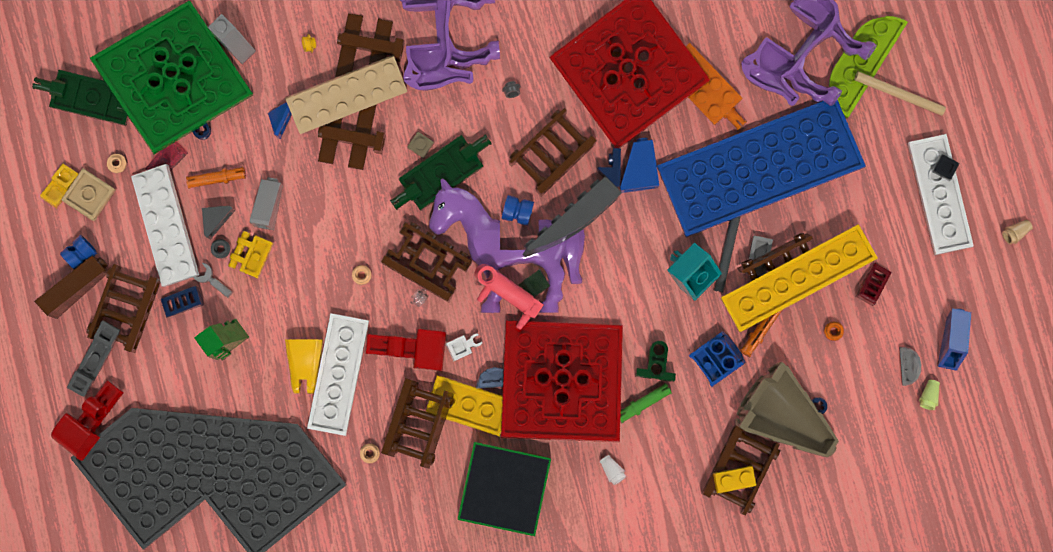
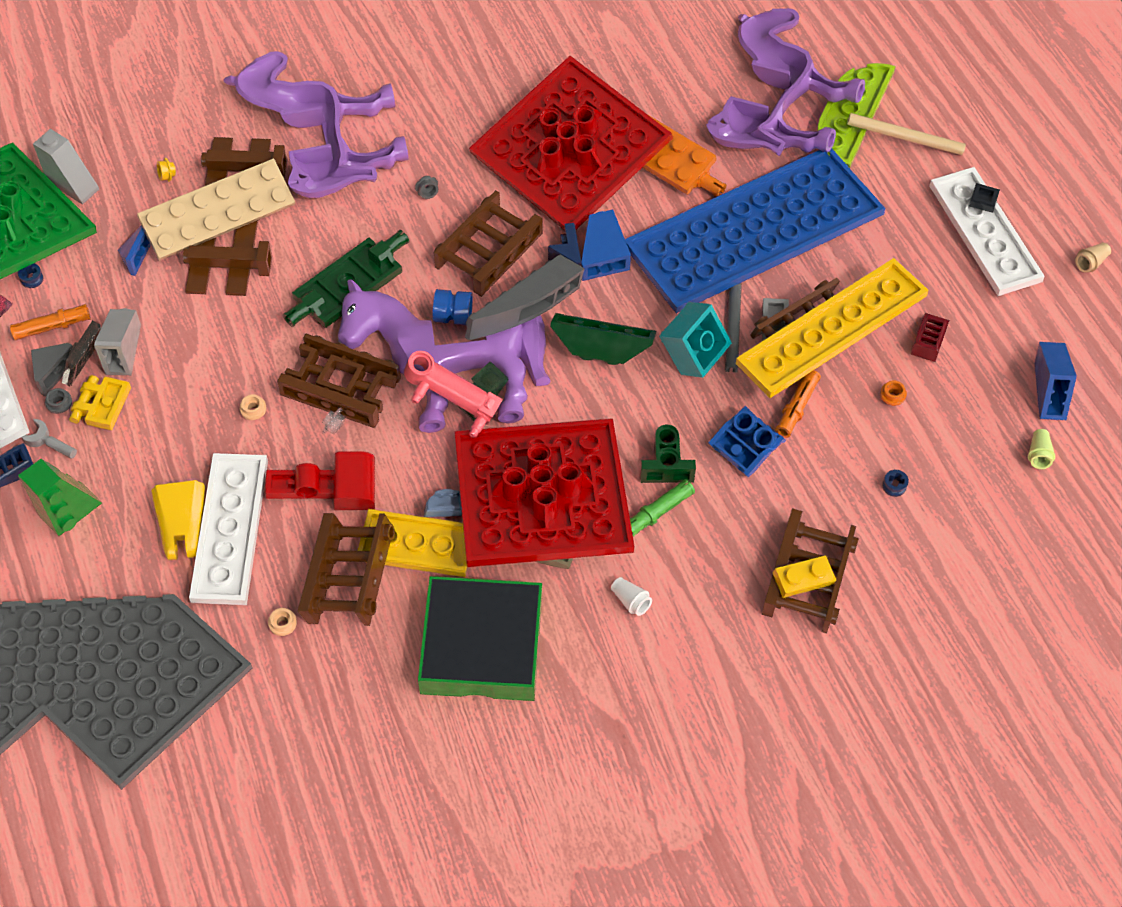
camera: 10 degrees left, 25 degrees down
(238, 216) = (80, 354): none -> clear smoke plate
(420, 145) = (317, 257): dark tan plate -> none
(461, 347) = (399, 473): white plate -> none
(626, 254) = (601, 339): none -> dark green wedge
(785, 414) = (859, 488): dark tan cone -> none
(910, 365) = (1004, 418): light grey plate -> none

